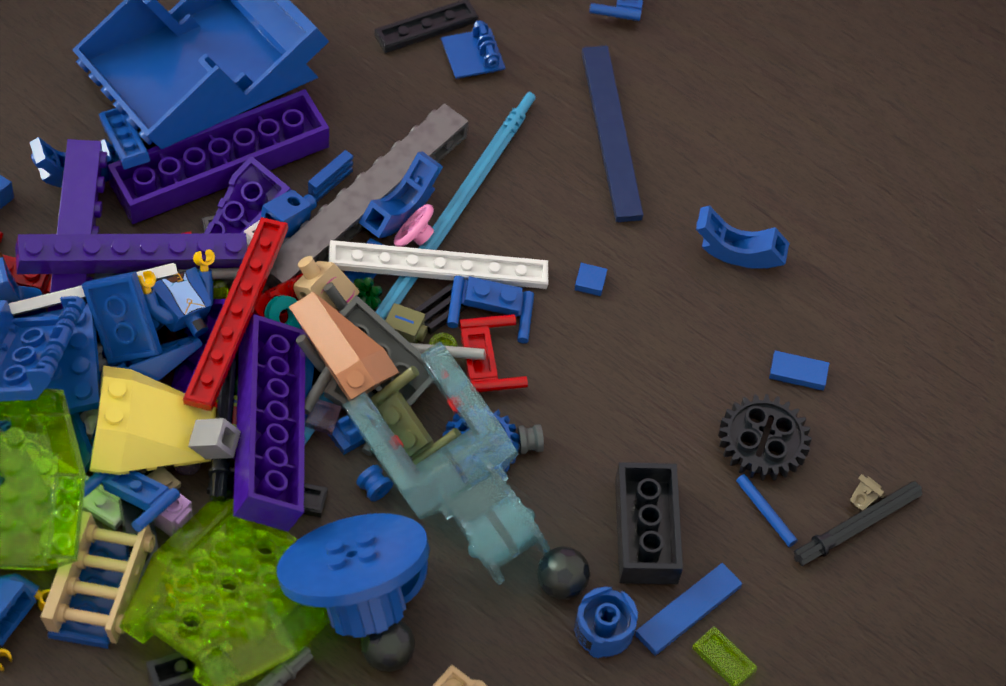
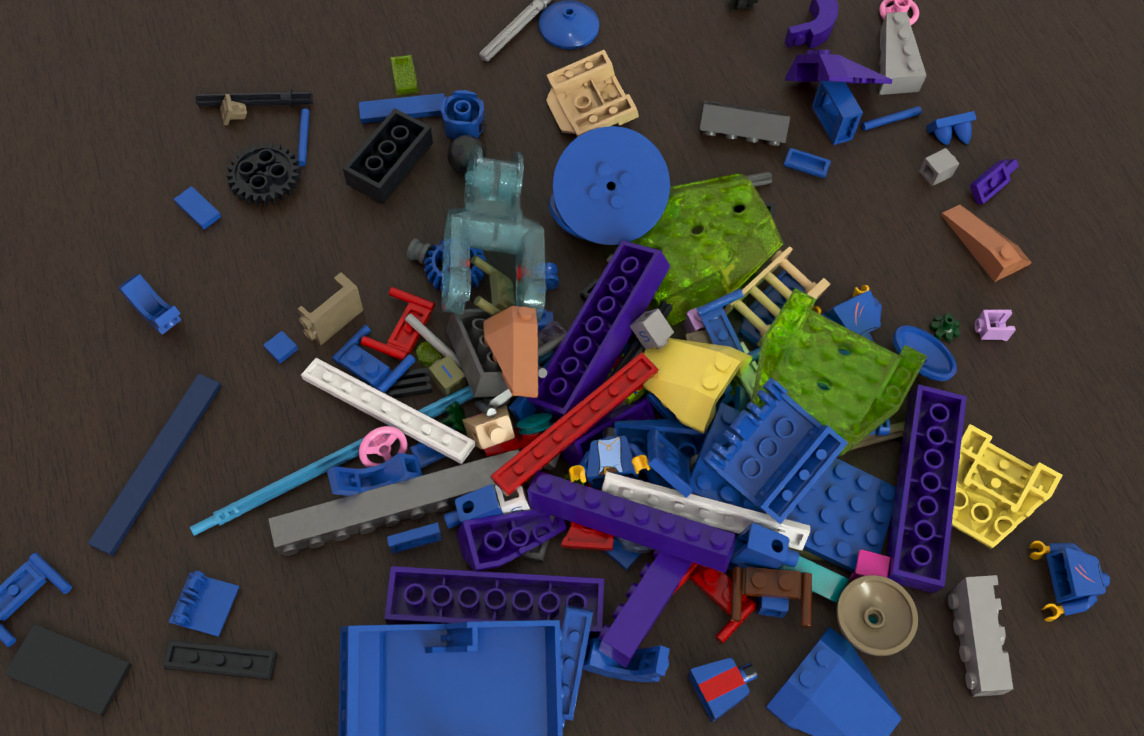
camera: 145 degrees left, 5 degrees up
(561, 337) = (333, 313): none -> dark tan panel

